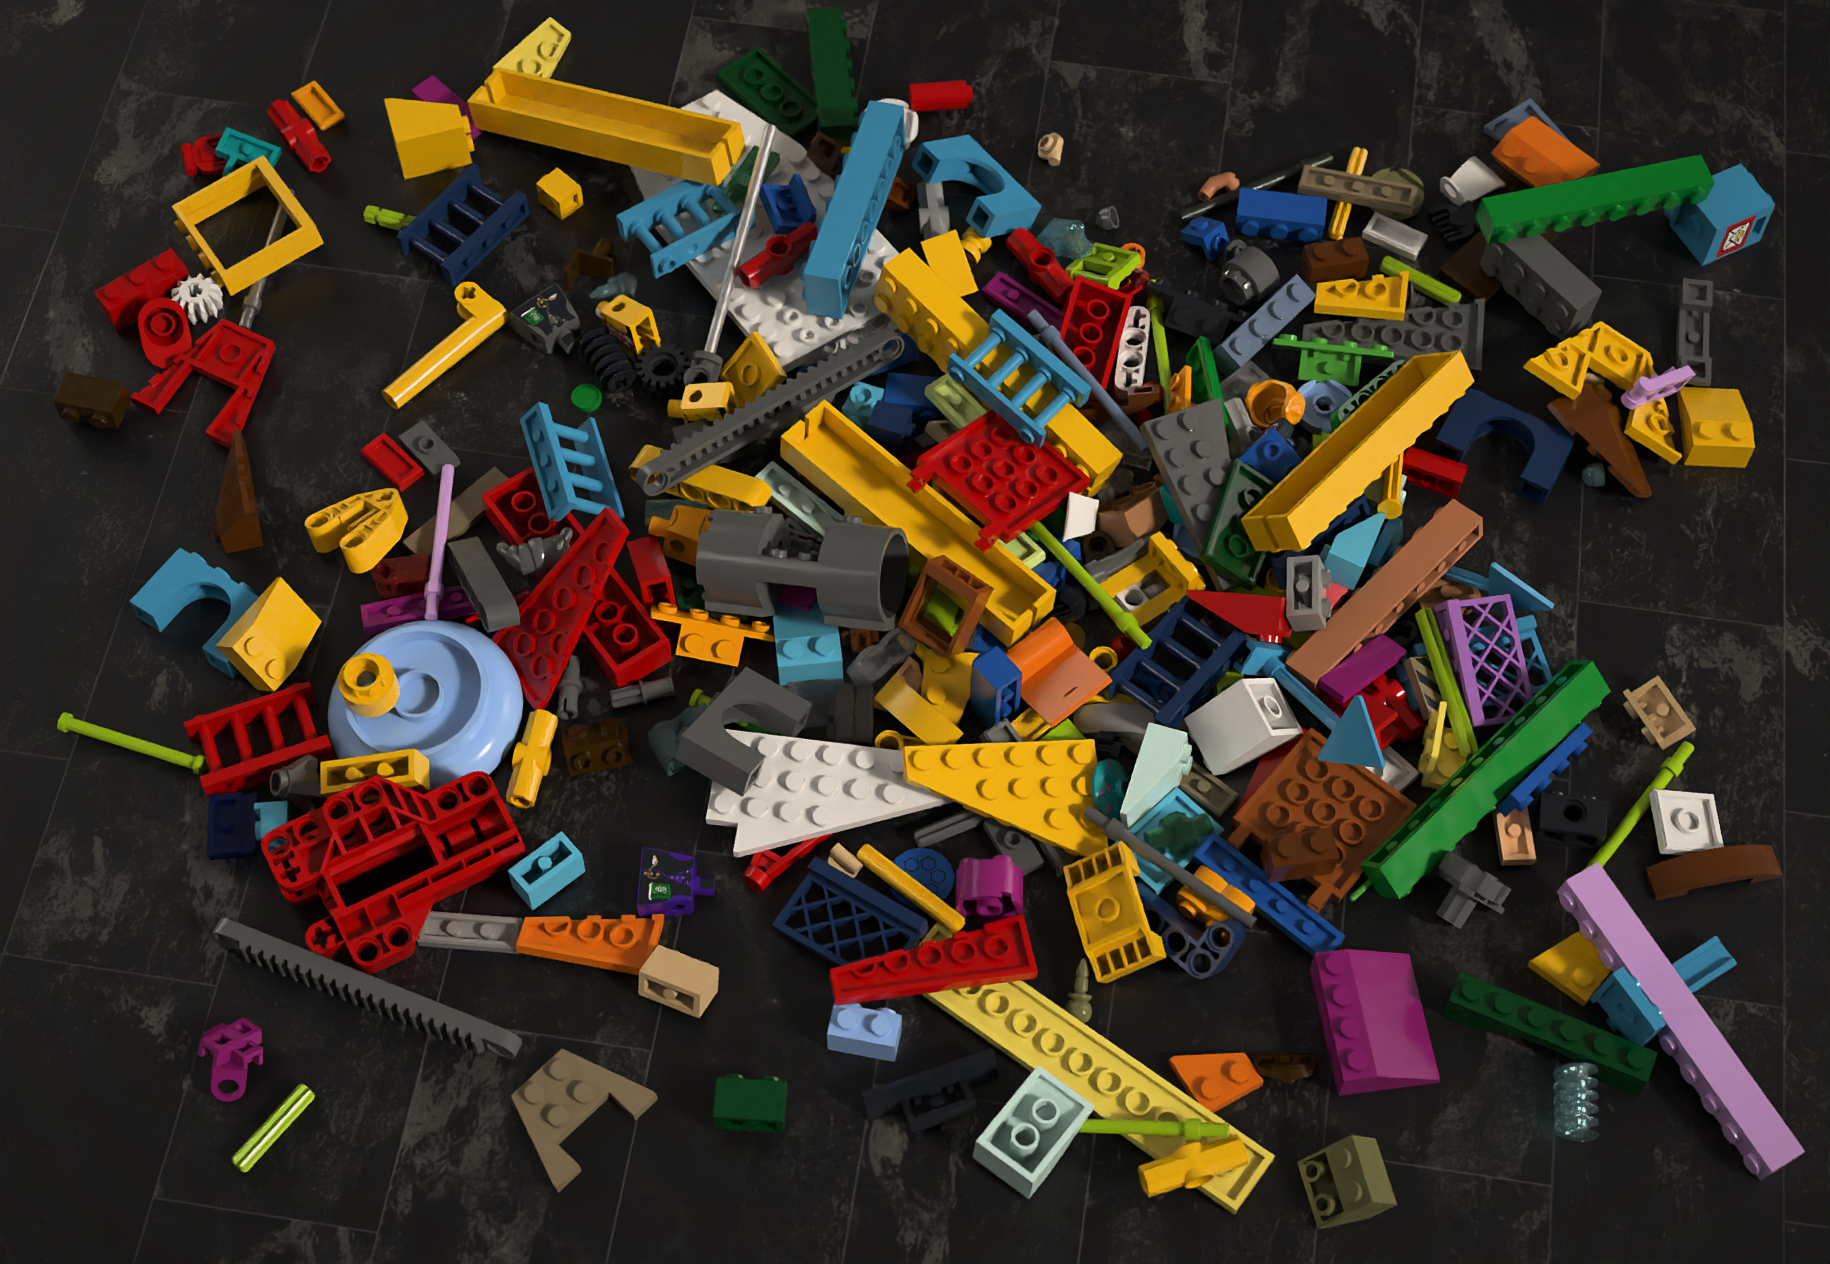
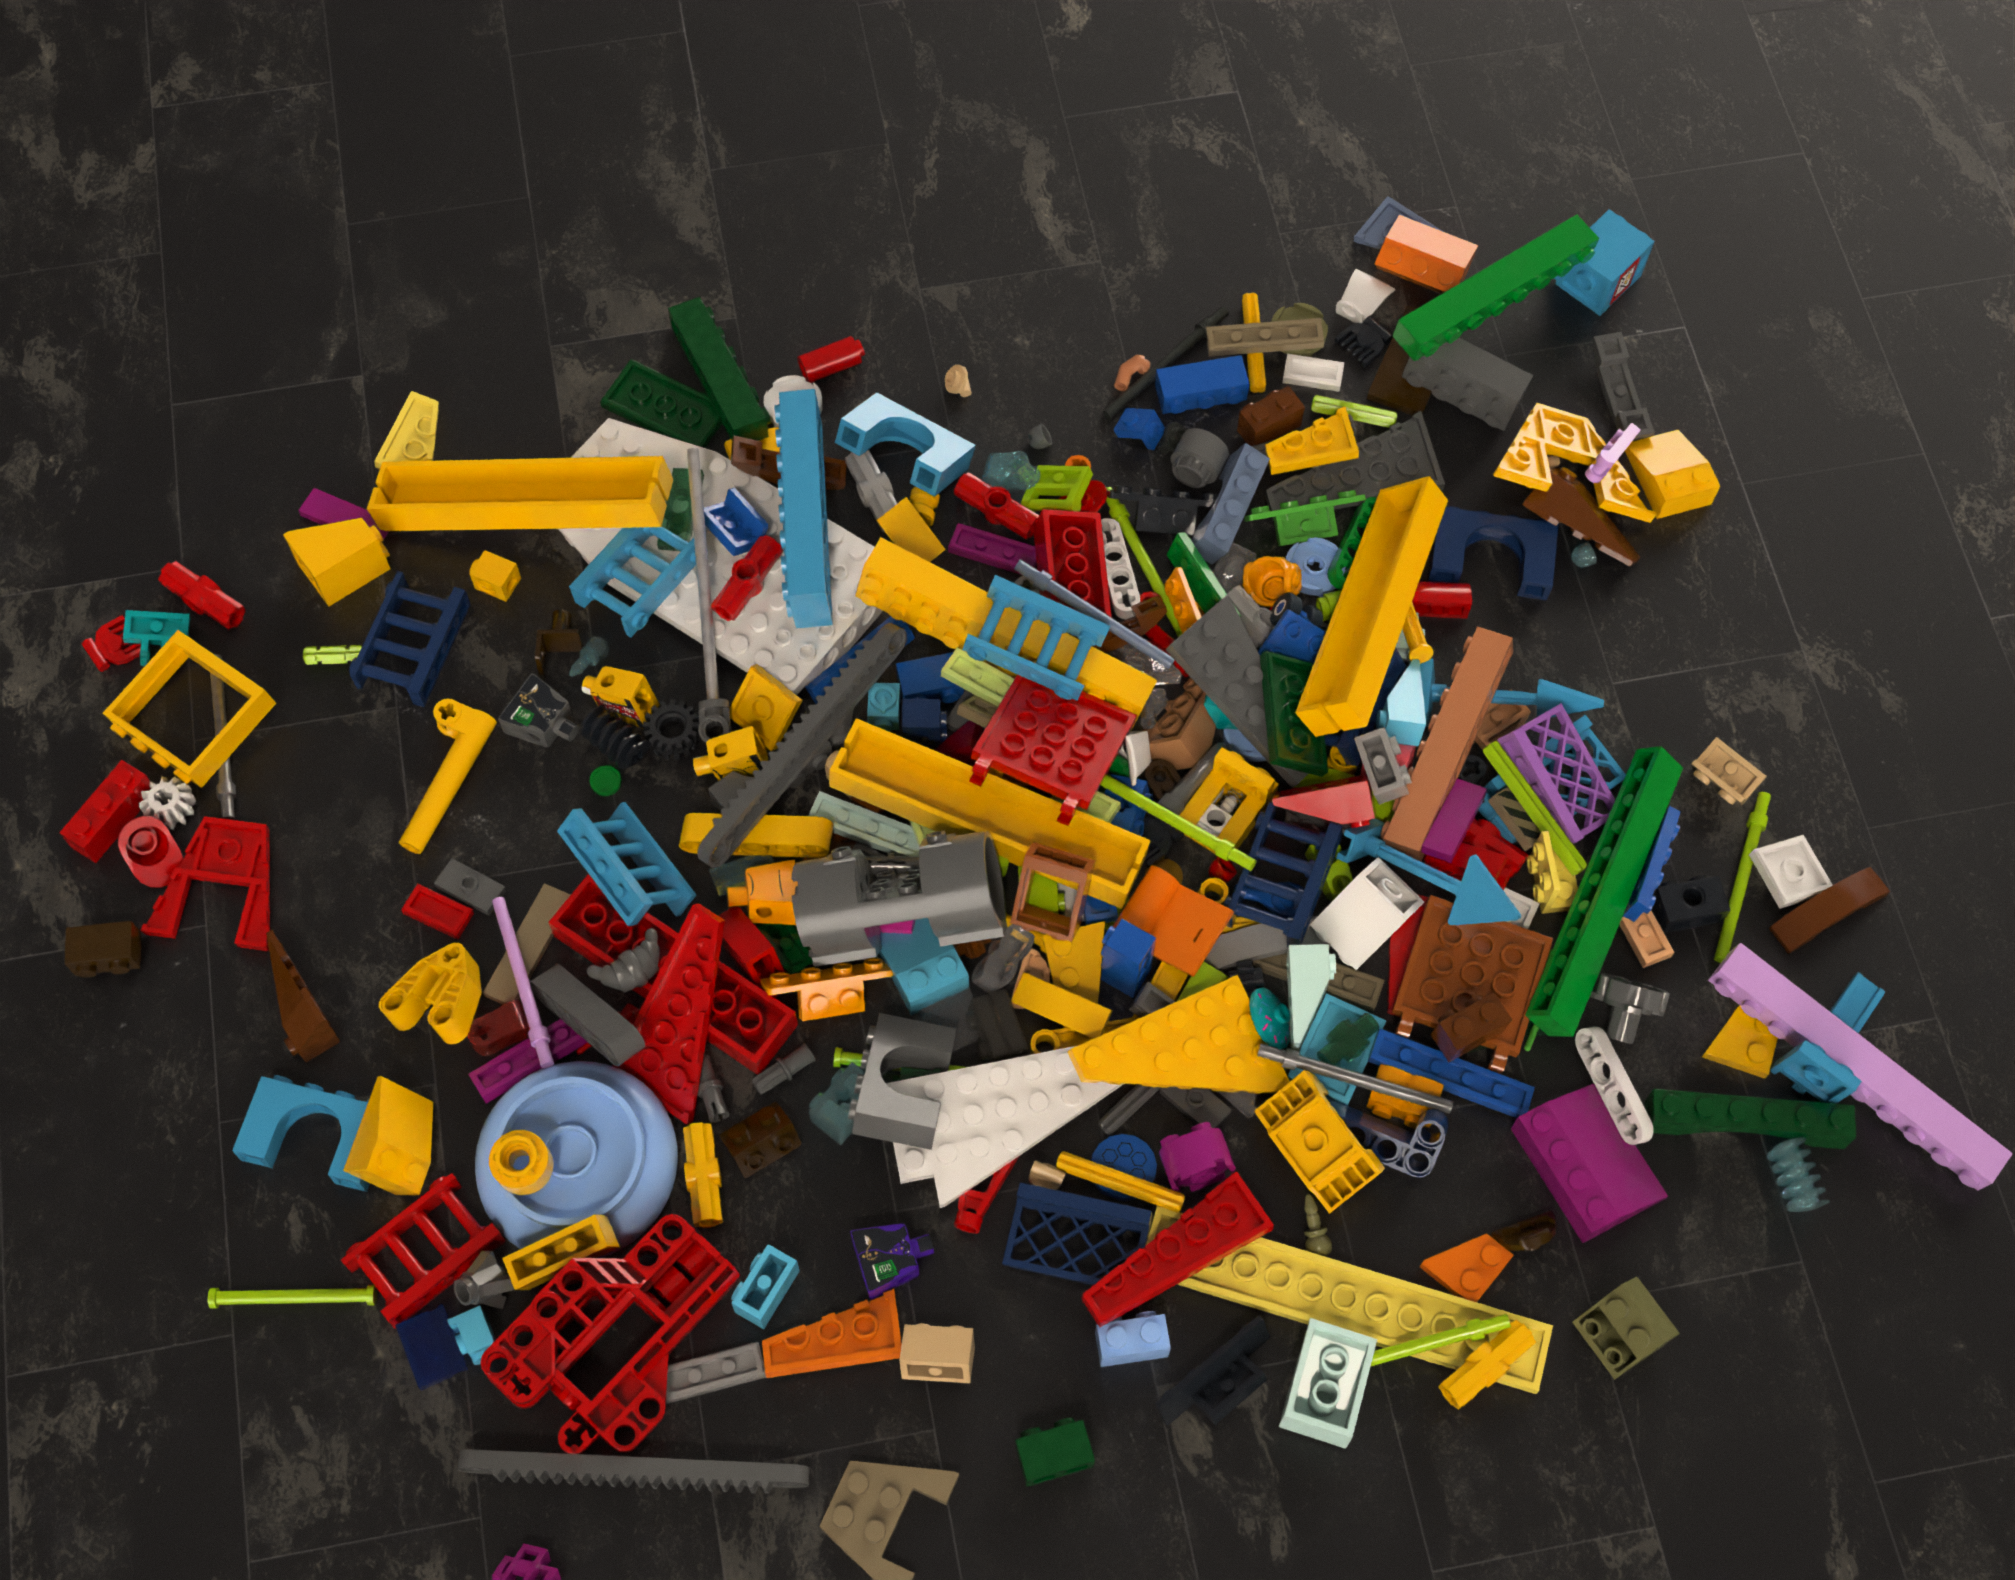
camera: 20 degrees left, 5 degrees up
(318, 105) = (208, 555): light orange tile -> none
(1428, 996) = (1610, 1087): none -> white beam

